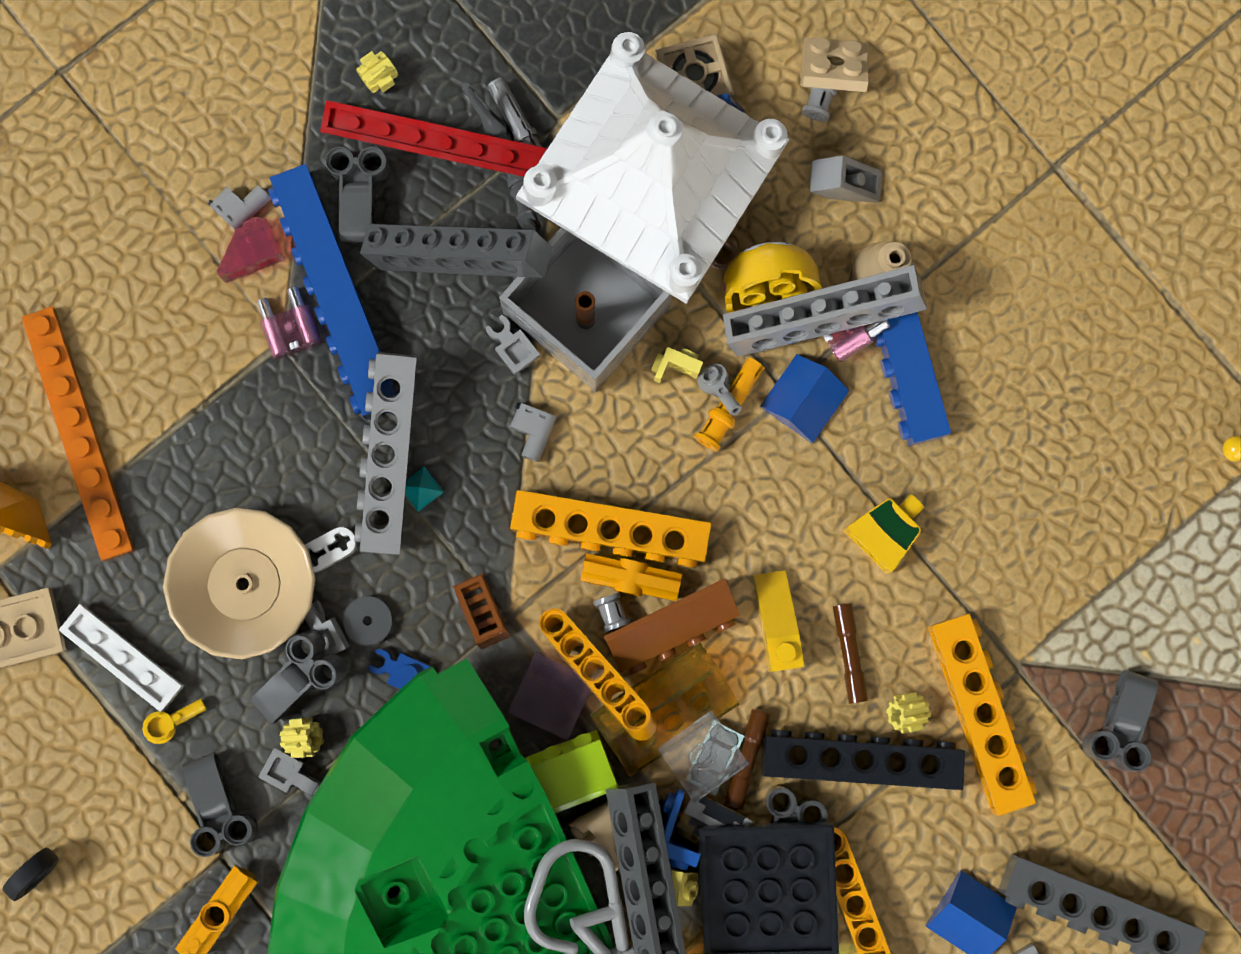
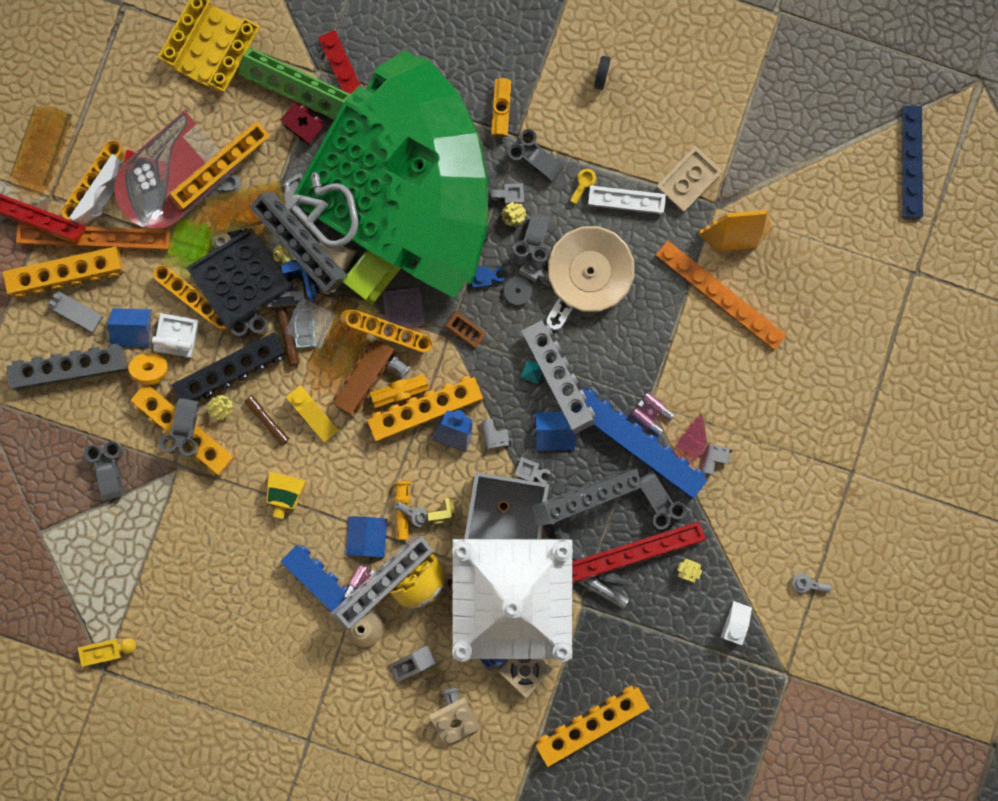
camera: 150 degrees right, 0 degrees up
(445, 383) = (553, 432): none -> blue slope
(588, 469) = (454, 430): none -> blue torso
(912, 862) = (175, 335): none -> white plate
(978, 851) = (144, 361): none -> light orange tile
(982, 710) = (183, 428): none -> dark grey piece

